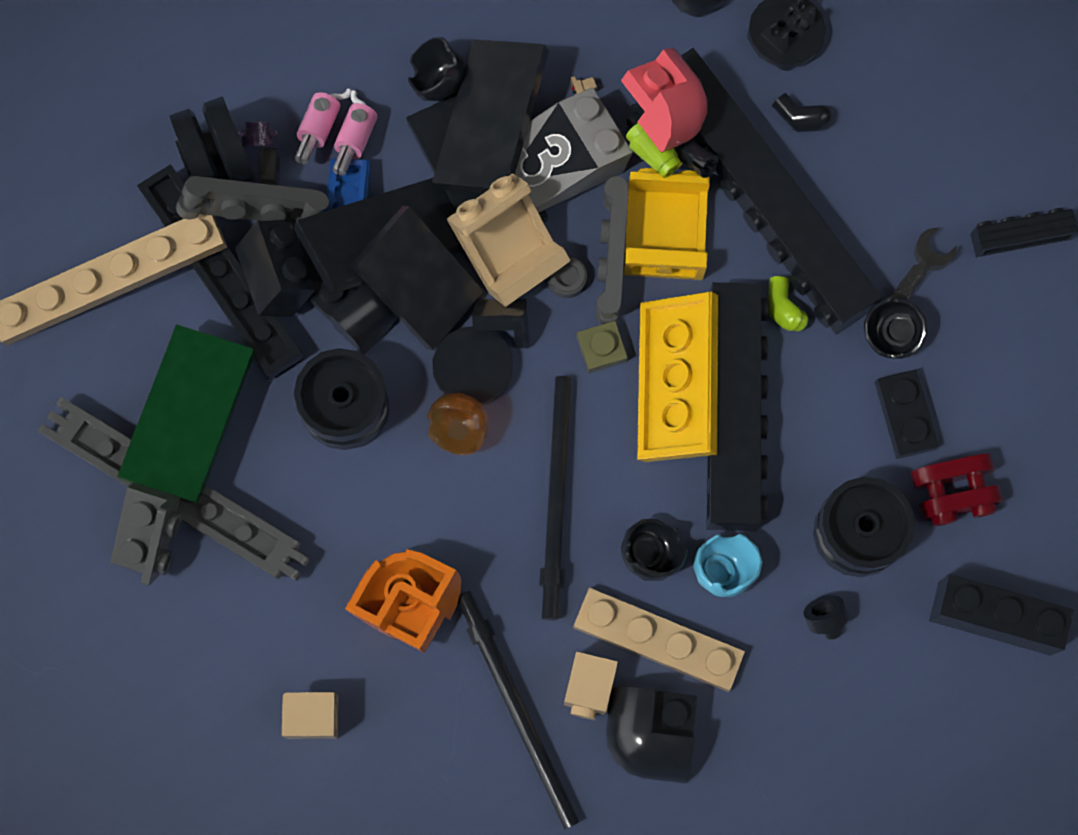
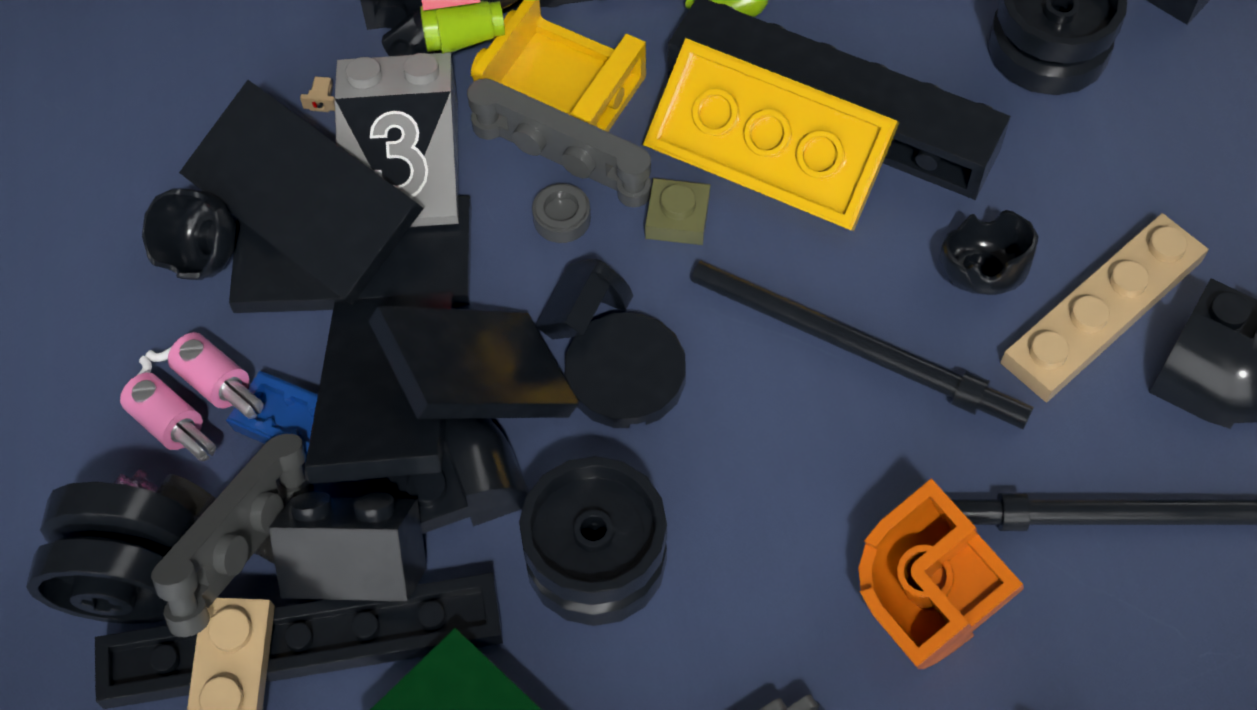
camera: 60 degrees left, 15 degrees down
(458, 423) = (704, 410): clear orange hair -> none
(507, 239) = (483, 241): tan panel -> none
(589, 685) = (1145, 402): tan brick -> none
(727, 565) = (1045, 179): medium azure hair -> none
(826, 616) = (1149, 108): black tile -> none

